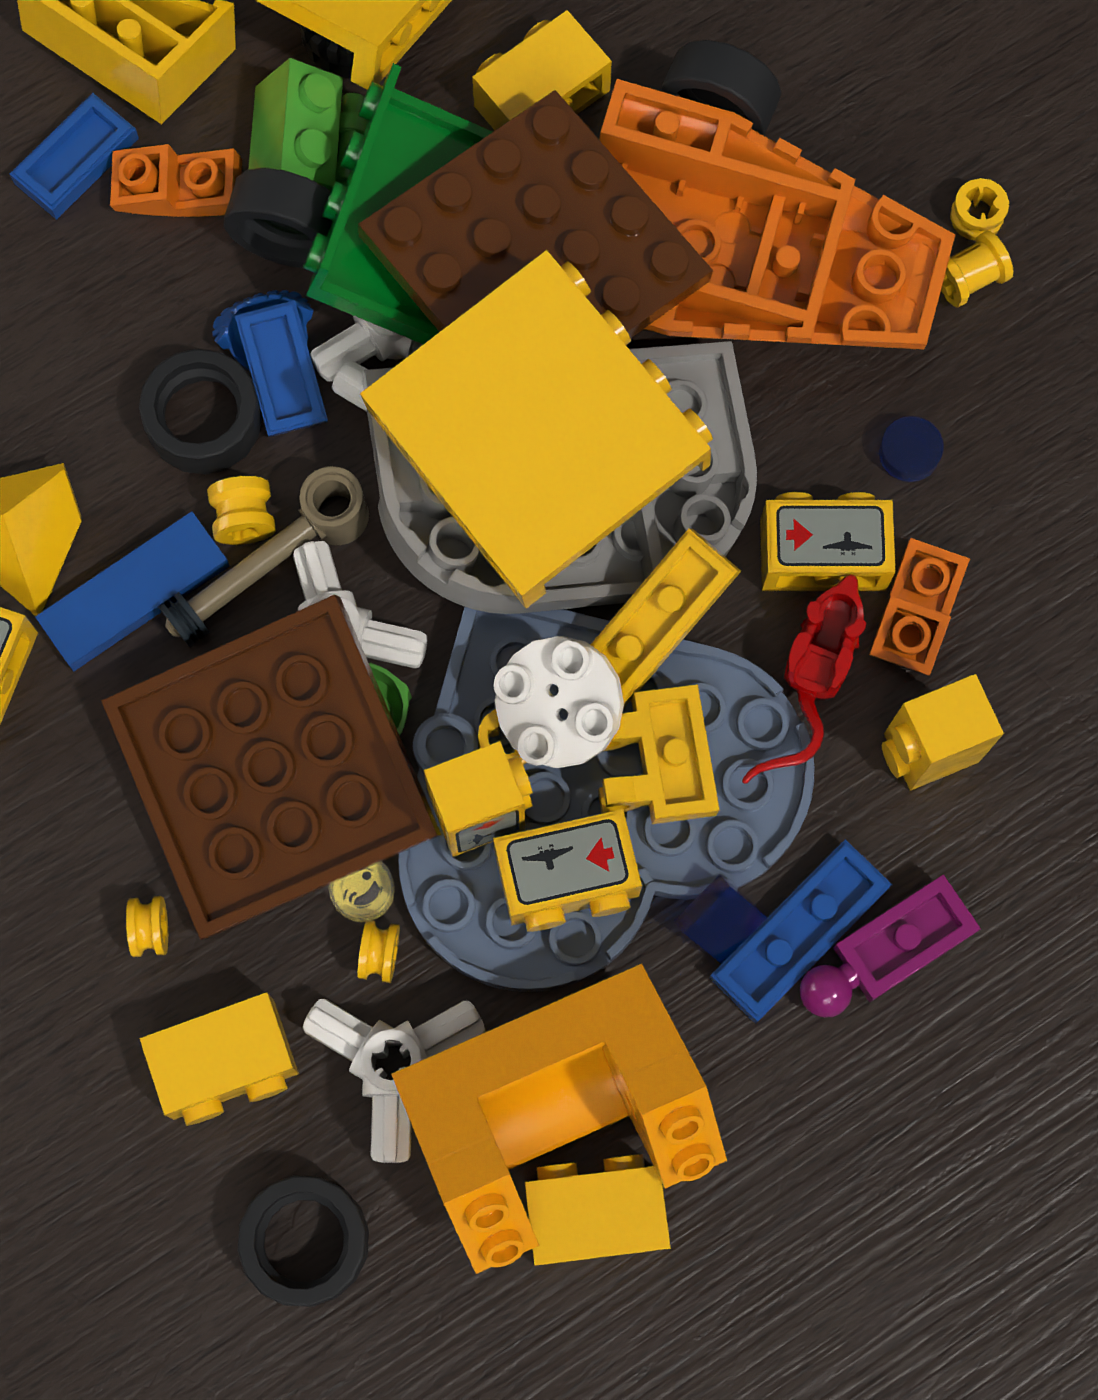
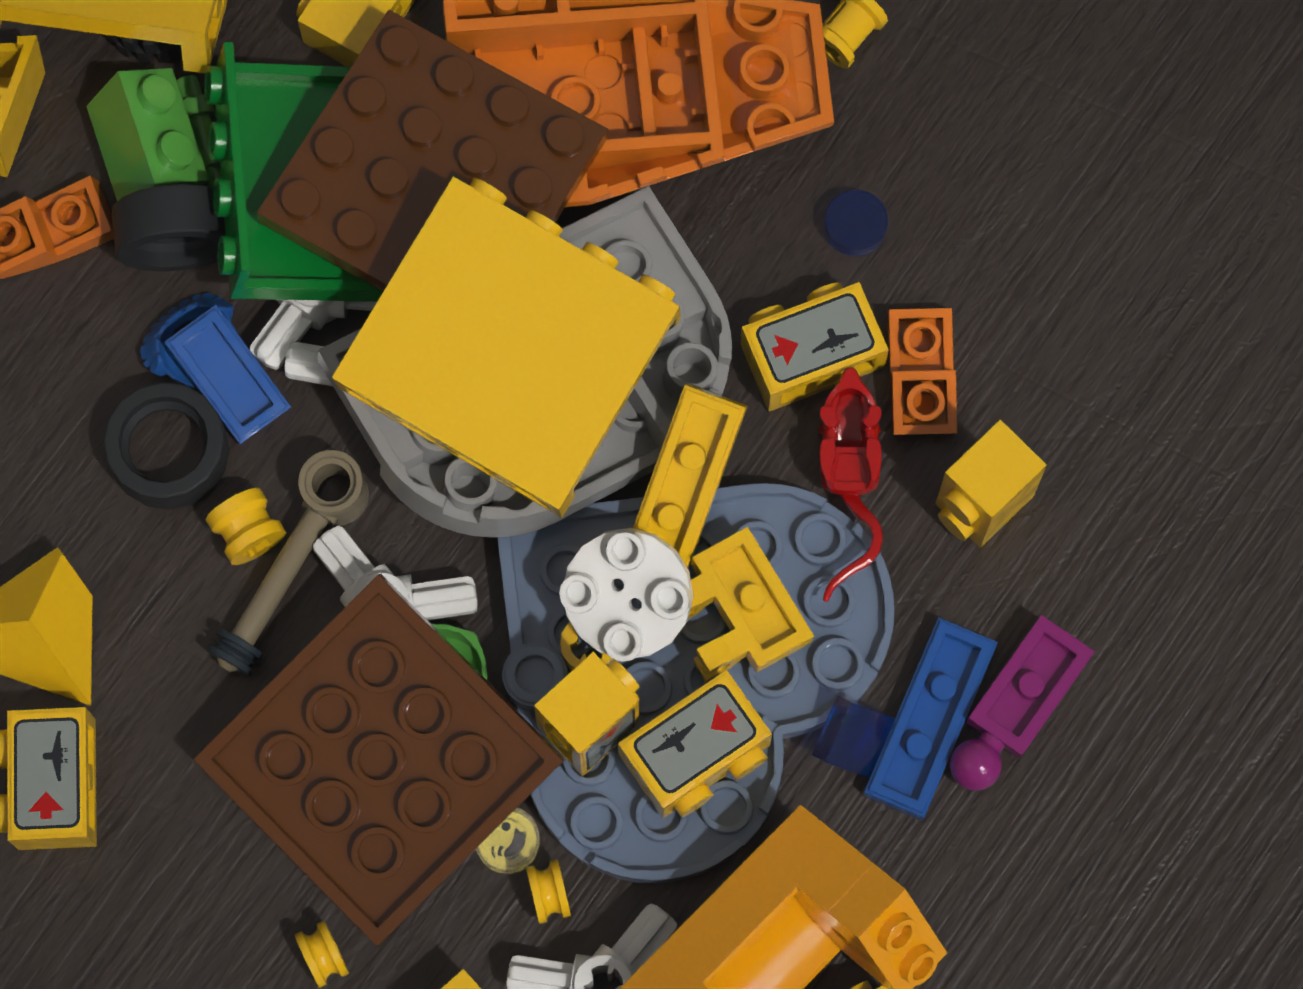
camera: 20 degrees left, 0 degrees up
(132, 591) = (171, 644): blue tile -> none

